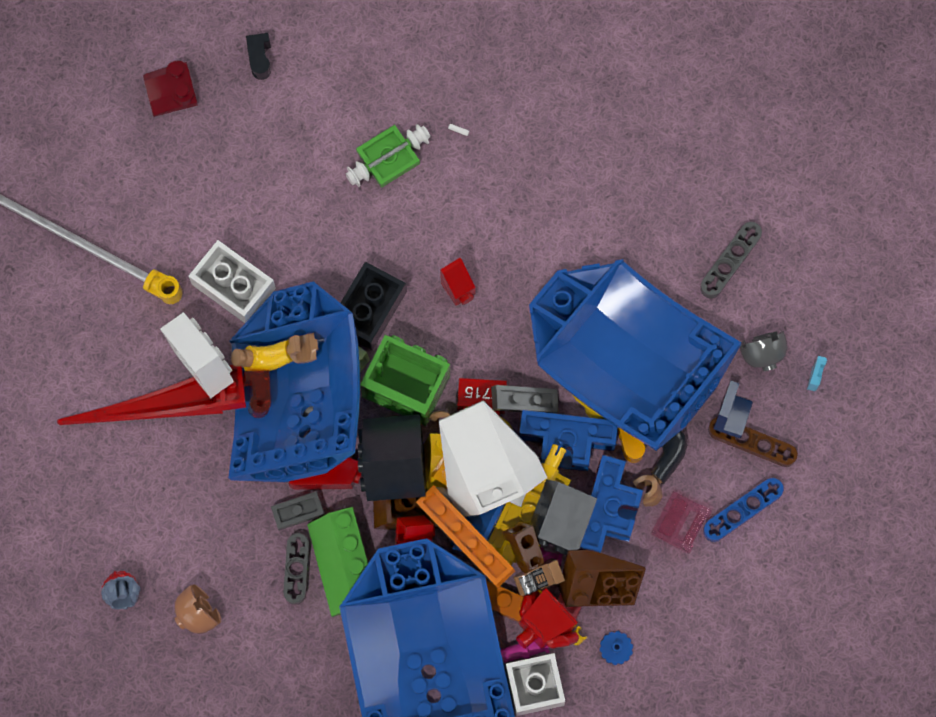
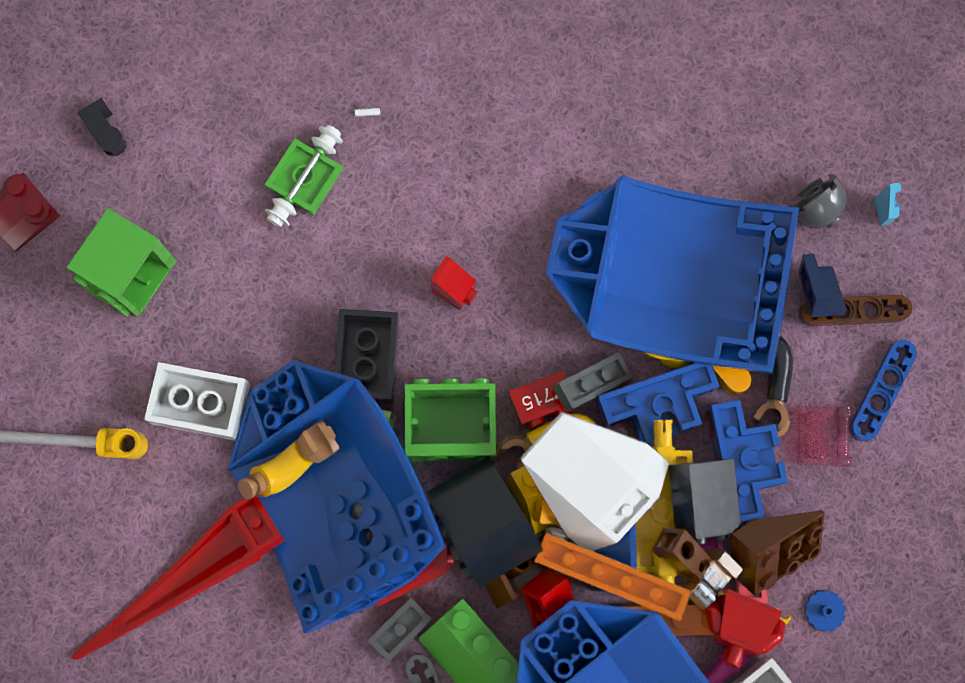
camera: 30 degrees left, 5 degrees up
(198, 354) = (199, 506): white brick -> none
(225, 159) = (121, 264): none -> bright green container
(260, 392) = (296, 522): clear red leg -> none
(731, 260) = (732, 122): dark grey beam -> none

